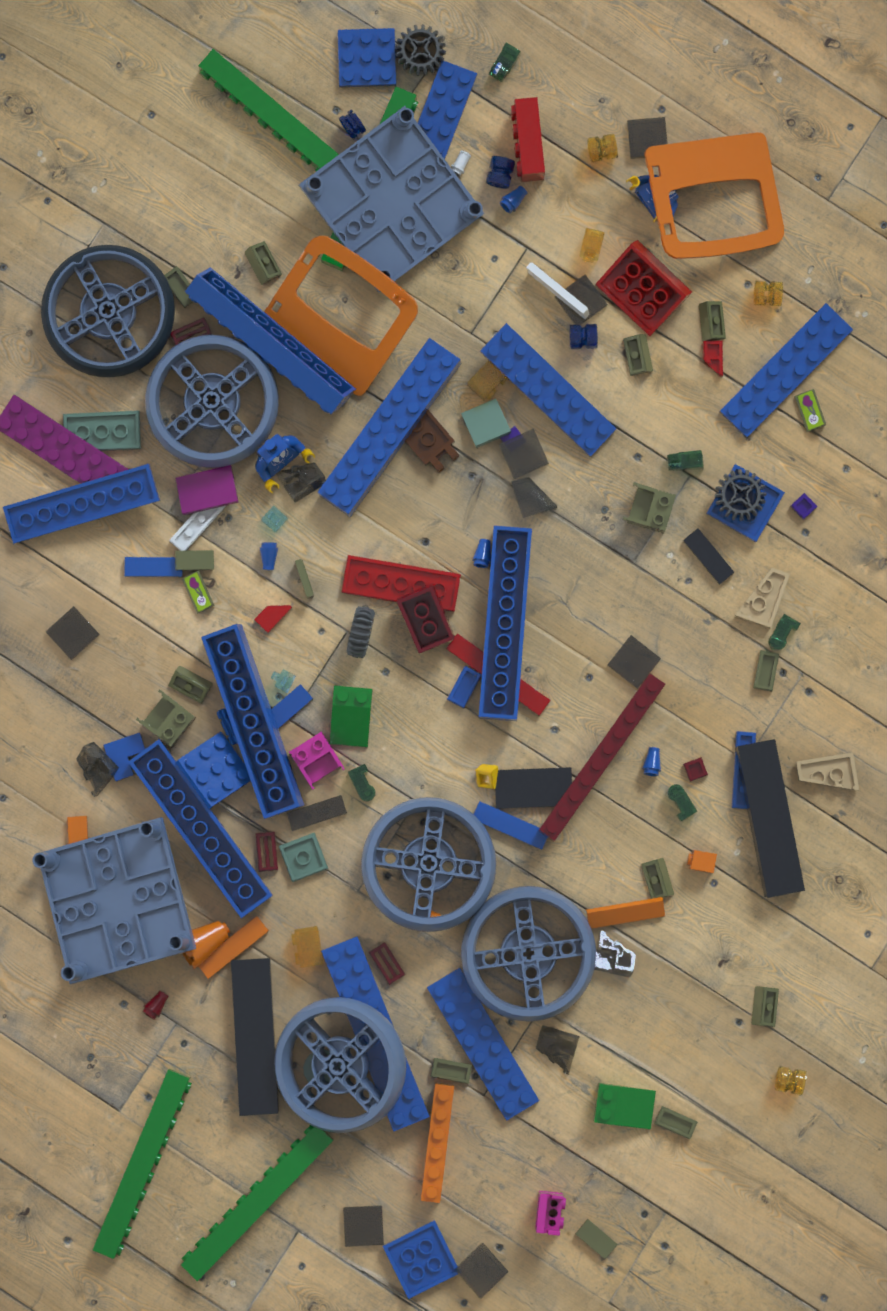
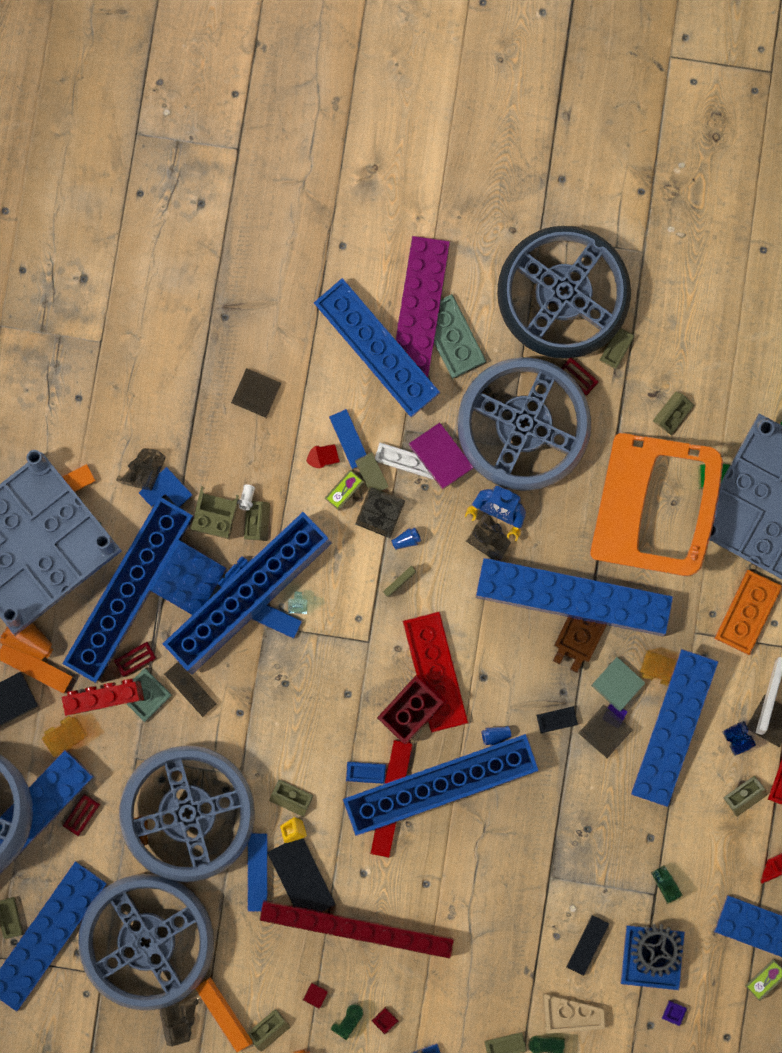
camera: 70 degrees right, 0 degrees up
(158, 597) = (323, 456): none -> red tile
(168, 686) = (245, 502): none -> white pin
(233, 568) = (380, 512): none -> clear smoke slope
(270, 340) = (603, 452): blue brick -> none
(271, 616) = (352, 566): red tile -> none
(274, 519) = (442, 529): clear light blue tile -> none
(289, 895) = (107, 697): none -> red brick
(315, 758) = (239, 666): dark pink piece -> none
(351, 716) = (292, 680): green slope -> none
(360, 632) = (372, 655): dark grey gear -> none
(361, 784) = (233, 719): clear green leg -> none
(457, 765) = (291, 798): none -> olive slope
(473, 277) = (748, 612): none -> orange tile
(493, 493) = (557, 719): none -> black tile
(531, 498) = (567, 756): clear smoke slope -> none
(558, 1046) = (74, 1006): clear smoke slope -> none
(634, 661) = (459, 919): clear smoke tile -> none
(645, 822) = (315, 995): none -> dark red tile
(651, 508) = (607, 872): olive piece -> none
(652, 762) = (373, 977): blue cone -> none

